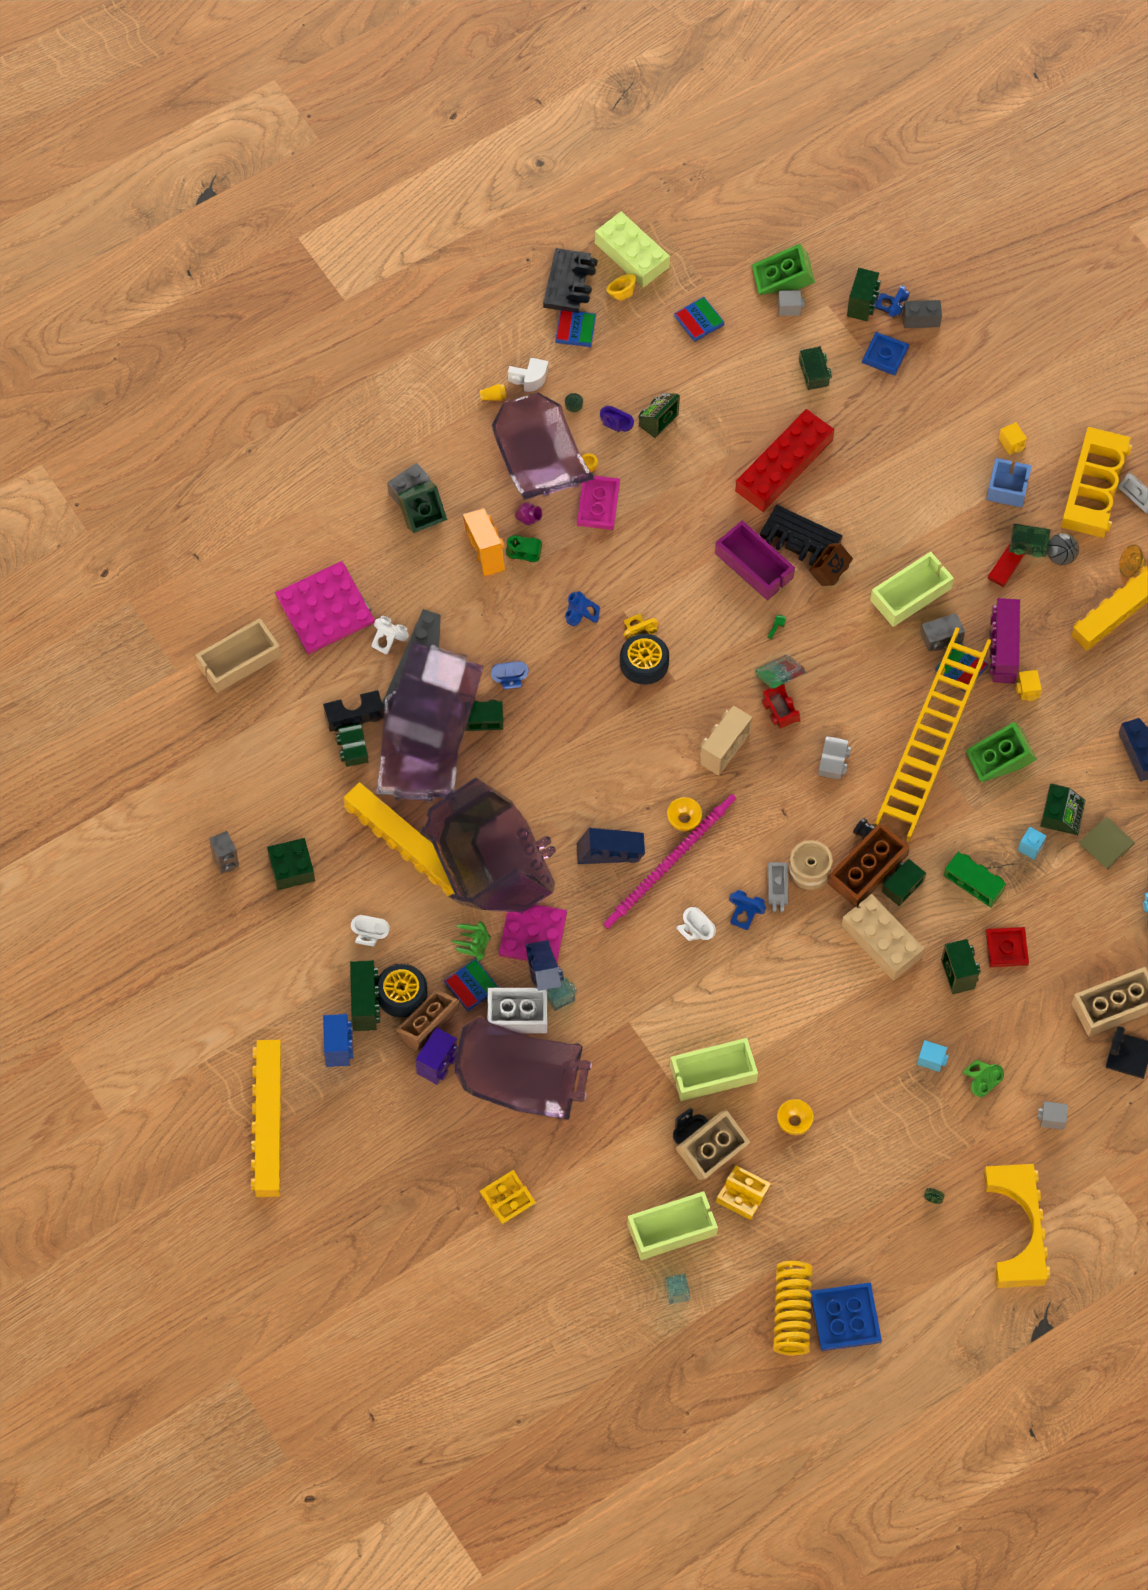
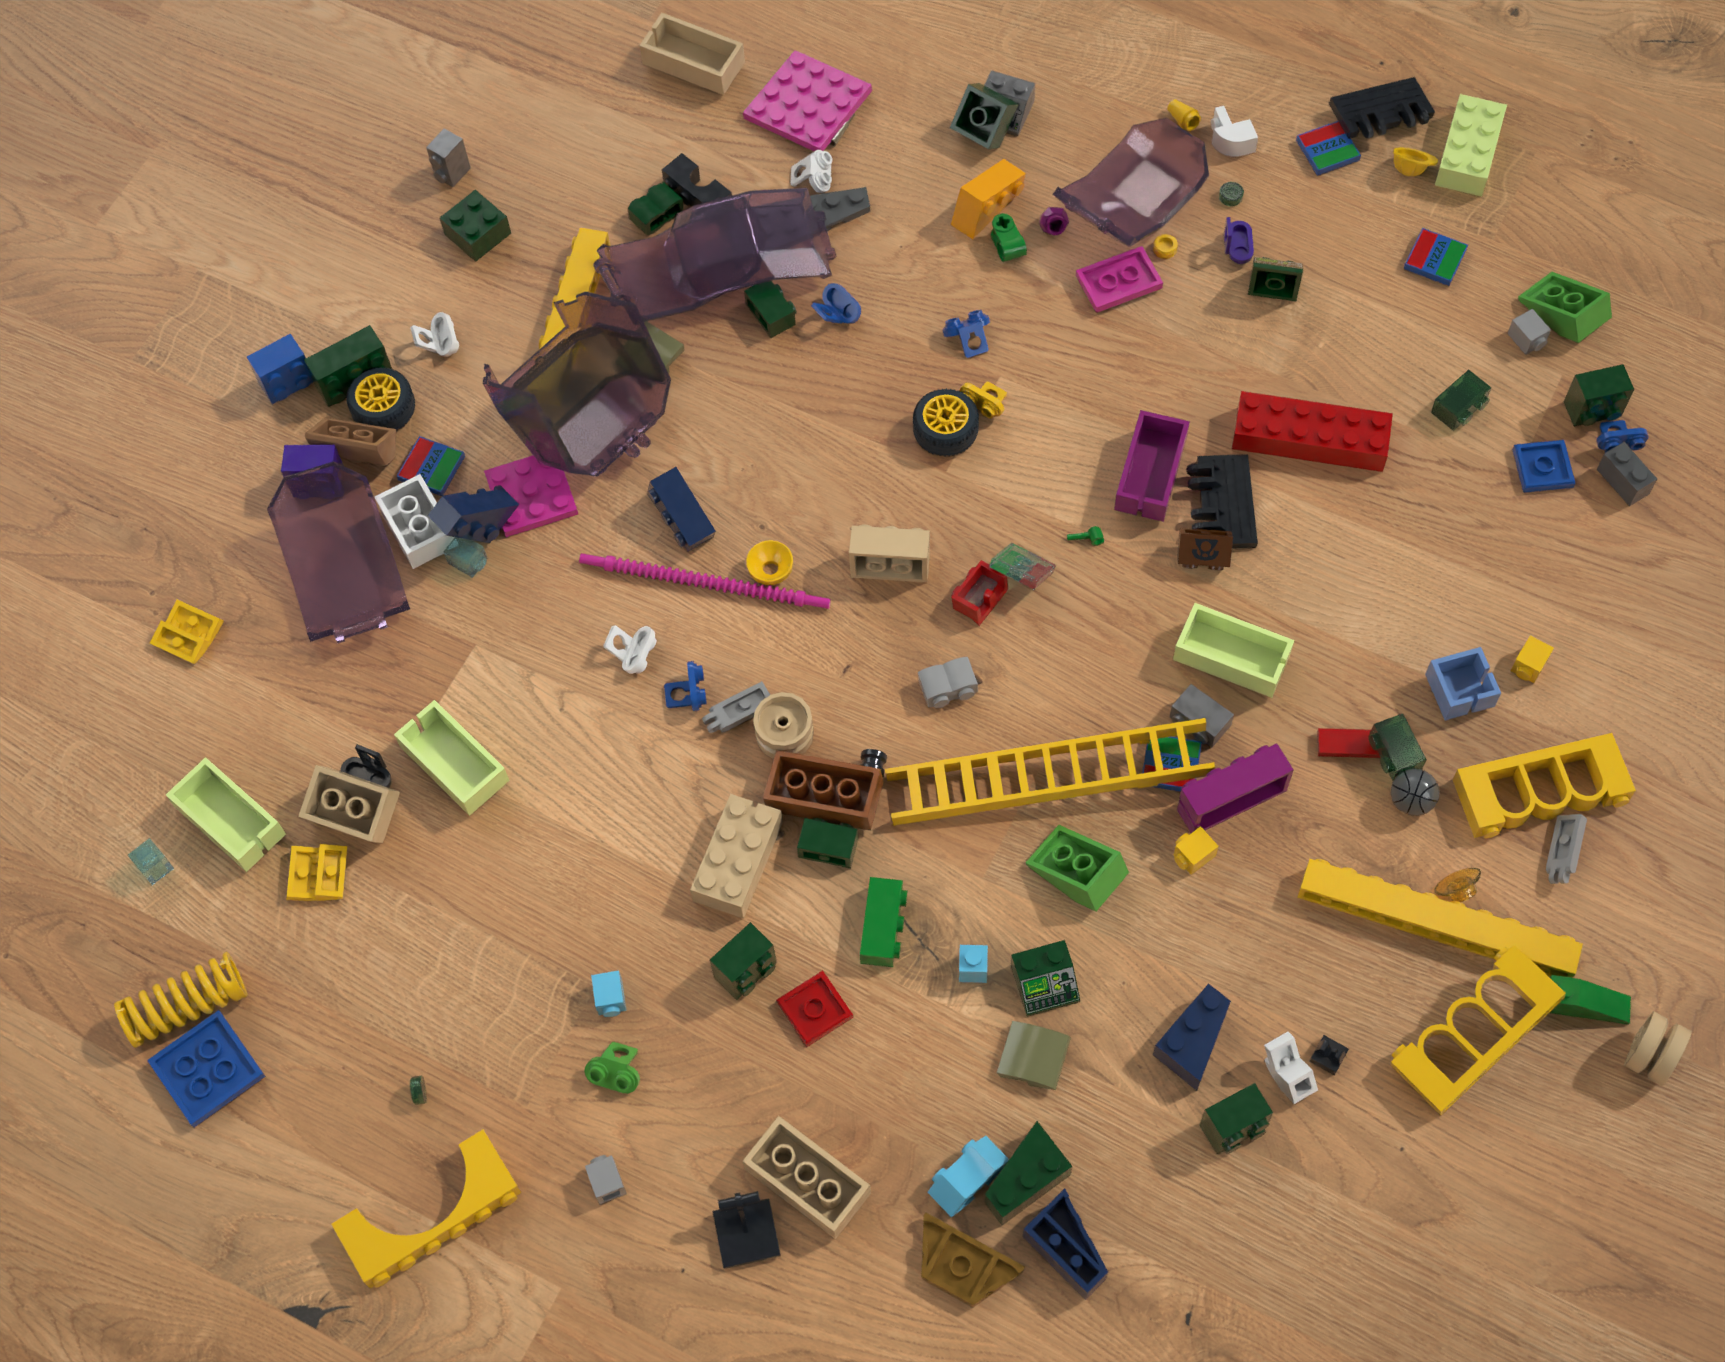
camera: 65 degrees right, 0 degrees up
(268, 1118) = (161, 358): yellow brick -> none
(479, 941) = (469, 436): bright green piece -> none
(795, 1108) = (433, 868): yellow piece -> none

